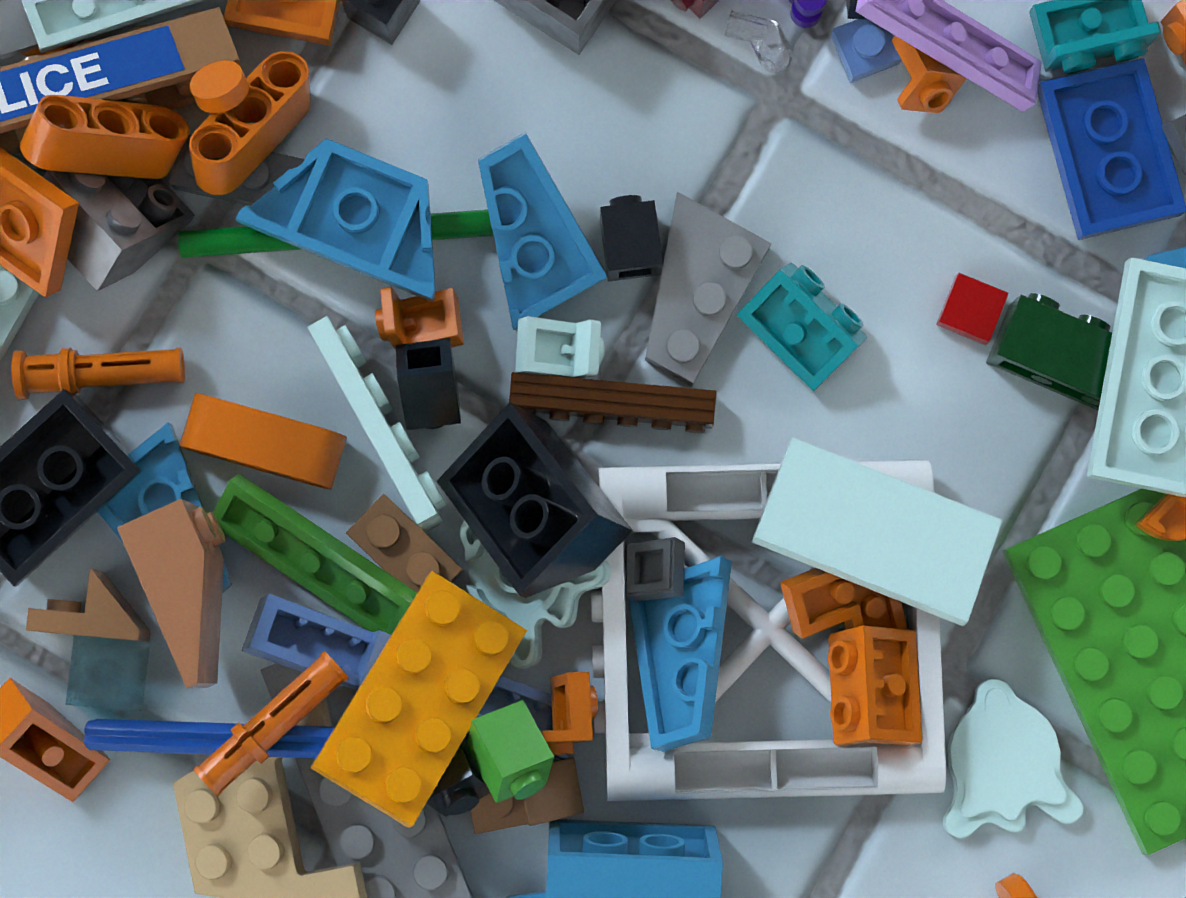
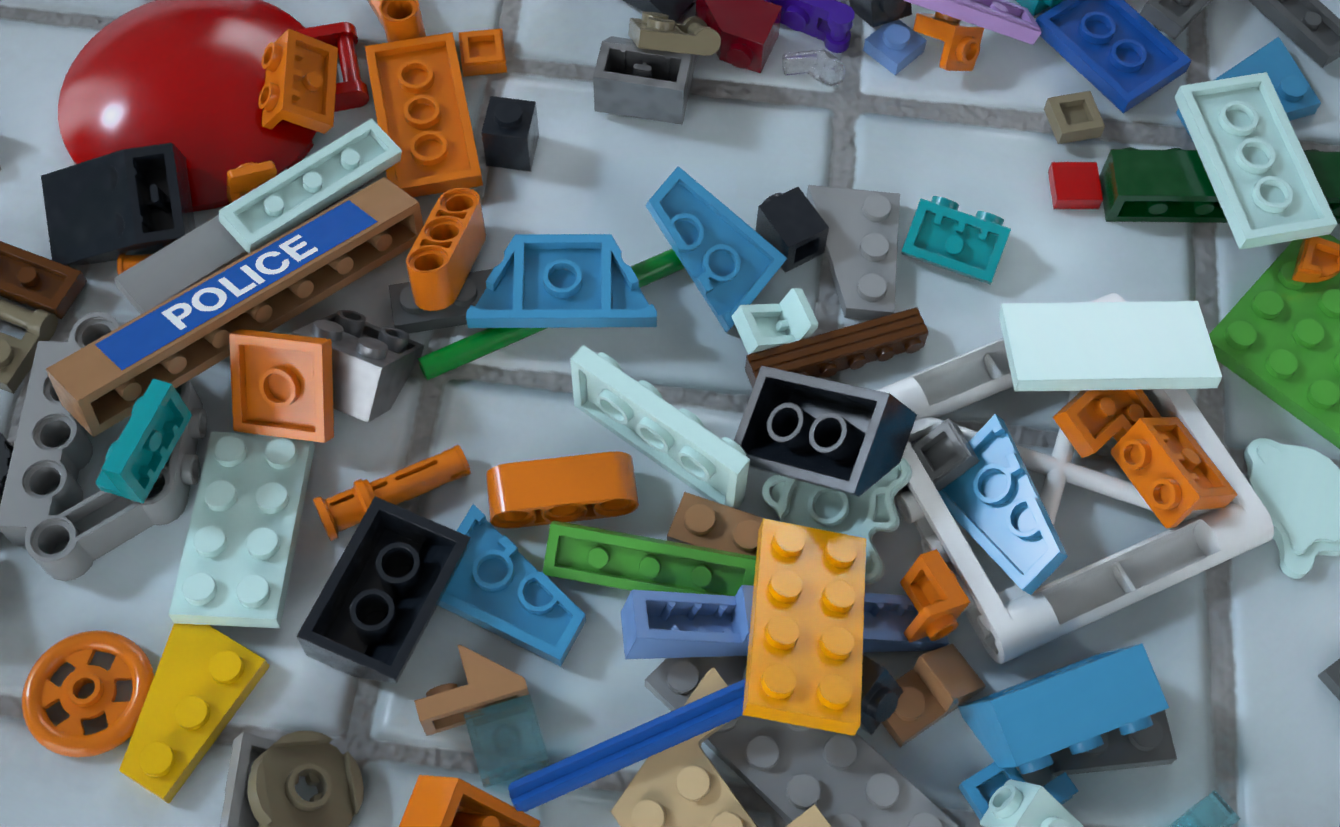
camera: 20 degrees left, 20 degrees down
(103, 137) = (329, 293): orange beam -> none
(183, 579) = (539, 596): nougat slope -> none
(219, 86) = (413, 221): orange tile -> none
(270, 724) = (679, 713): orange pin -> none
(419, 319) = (653, 349): orange bracket -> none
(428, 384) = (686, 382): black brick -> none
(510, 752) = (908, 635): bright green brick -> none
(1015, 226) = (1074, 117): none -> dark tan plate

